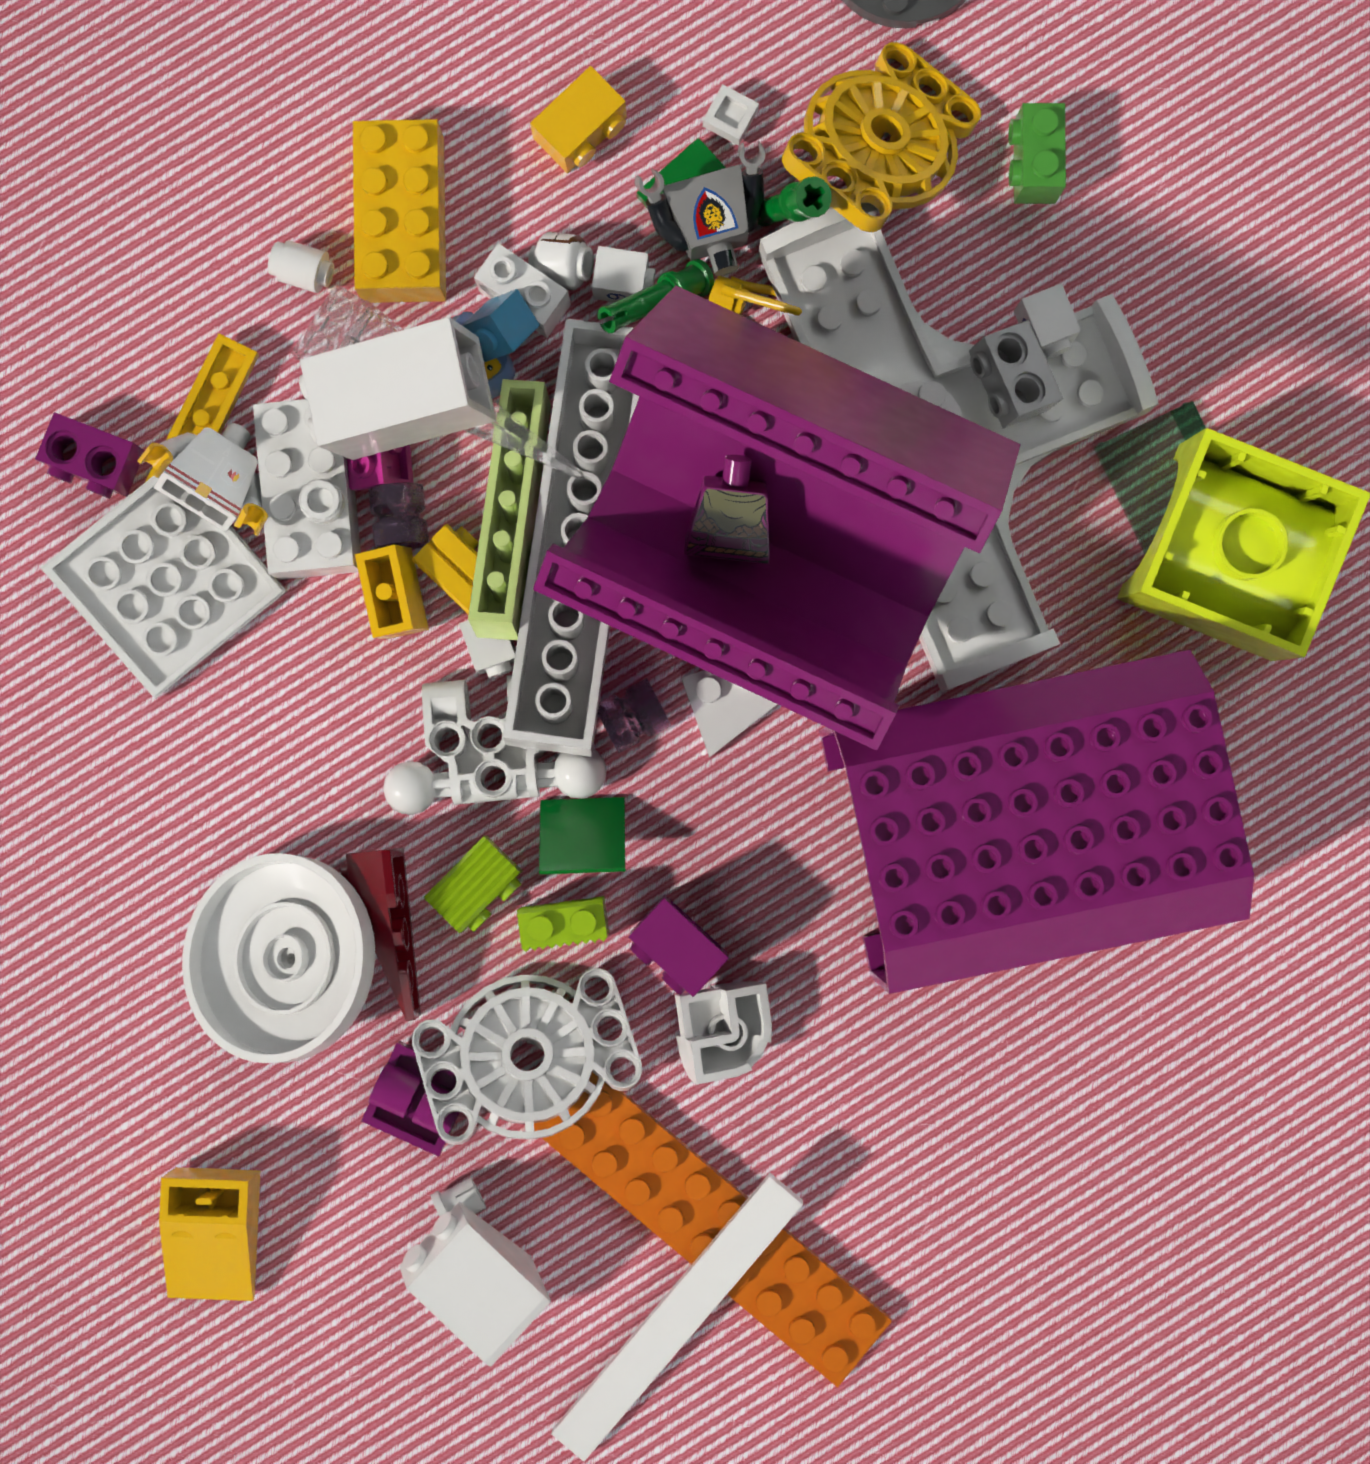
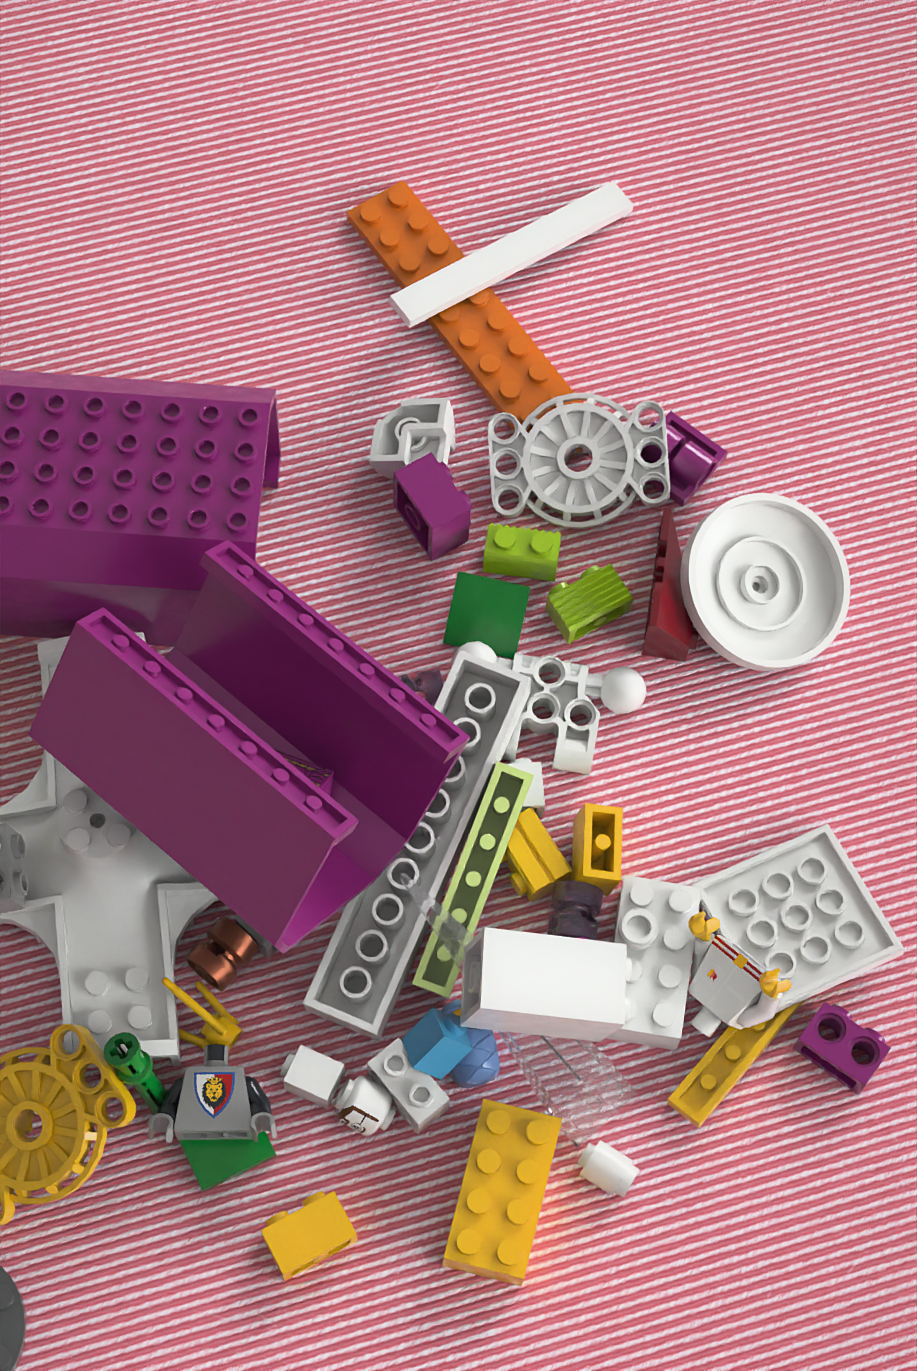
camera: 165 degrees left, 20 degrees down
(210, 1232) = (867, 407): yellow slope -> none
(465, 1193) = (664, 375): white bush -> none
(475, 1282) = (662, 308): white slope -> none
(694, 278) = (273, 1043): green pin -> none
(730, 114) = (164, 1202): white plate -> none

